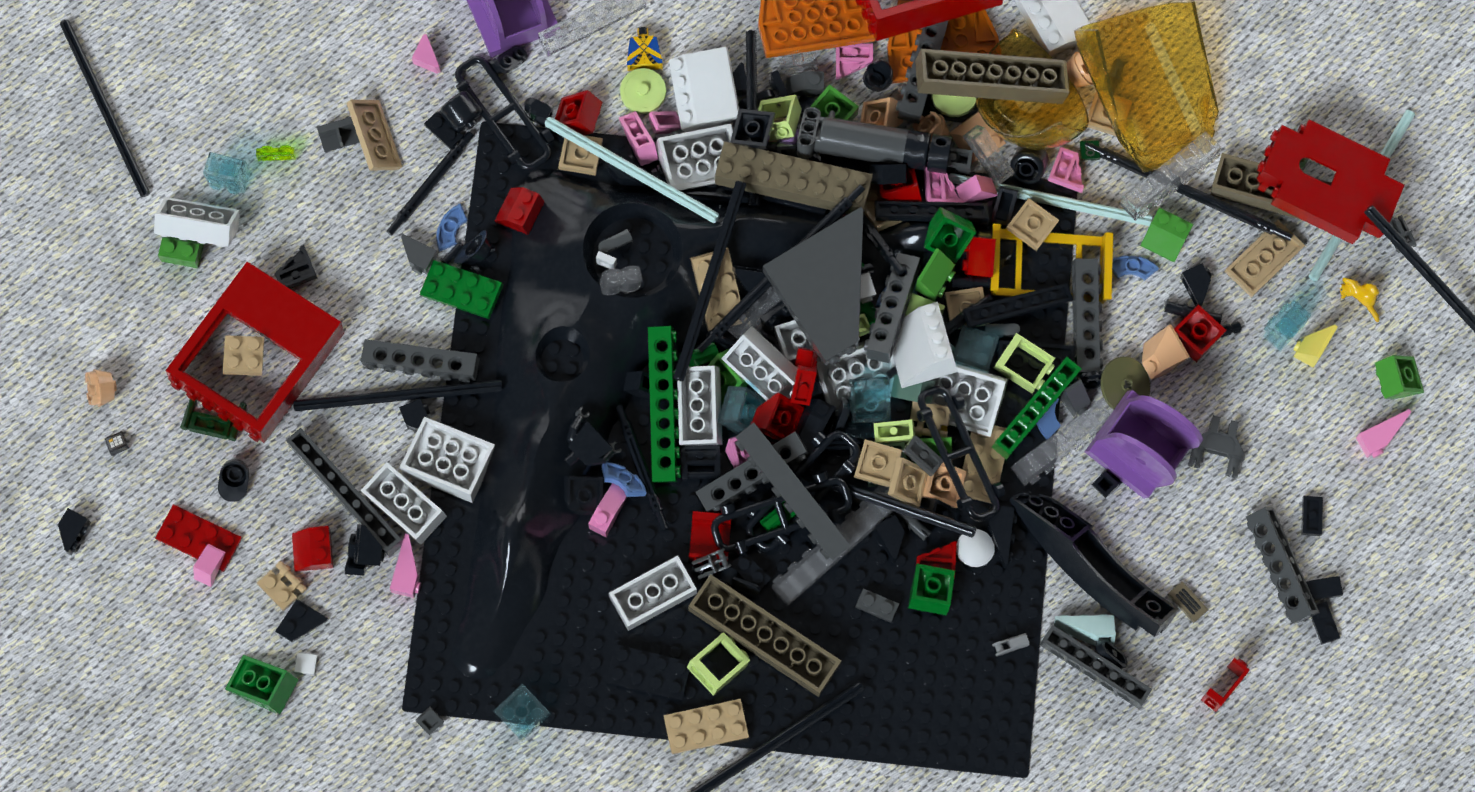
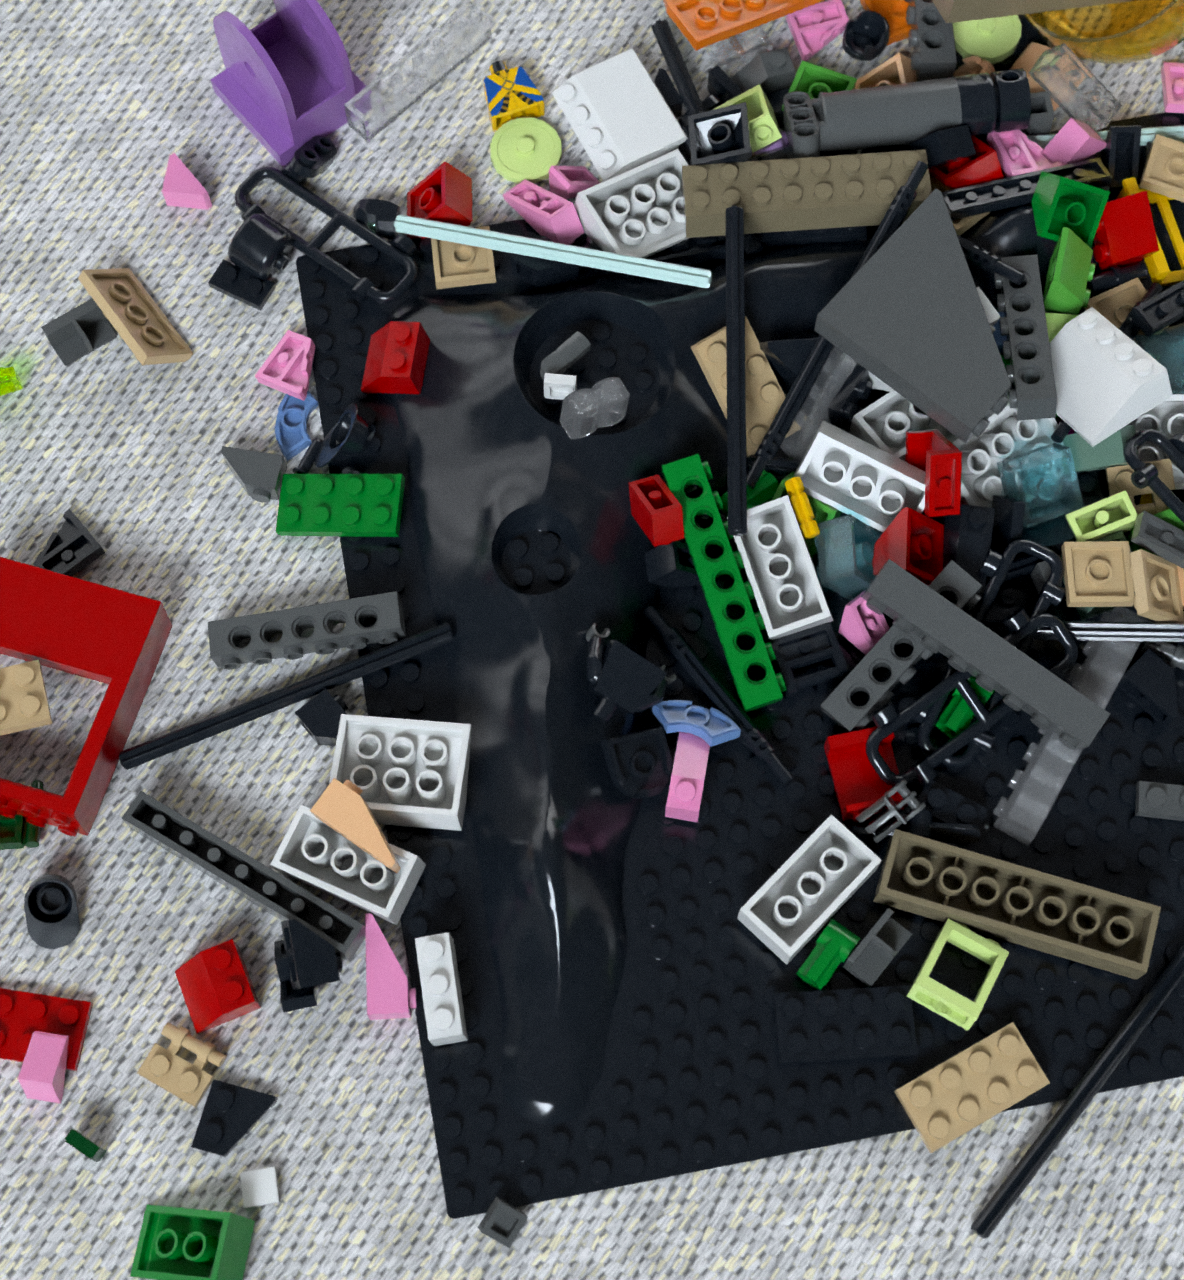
camera: 15 degrees left, 5 degrees down
(219, 613) = (85, 1145): none -> dark green tile
(412, 479) = (351, 817): none -> light nougat slope
(430, 183) = (242, 366): black axle -> none
(433, 587) = (441, 989): none -> white brick
(457, 192) = (289, 365): none -> bright pink wing
(522, 712) = (659, 1160): clear light blue brick -> none
(637, 351) = (656, 510): none -> red brick
(656, 629) = (831, 949): none -> green piece
(680, 637) = (877, 949): none -> dark grey panel
(722, 374) = (802, 507): none -> yellow axle
(1029, 165) = (1137, 89): black head -> none

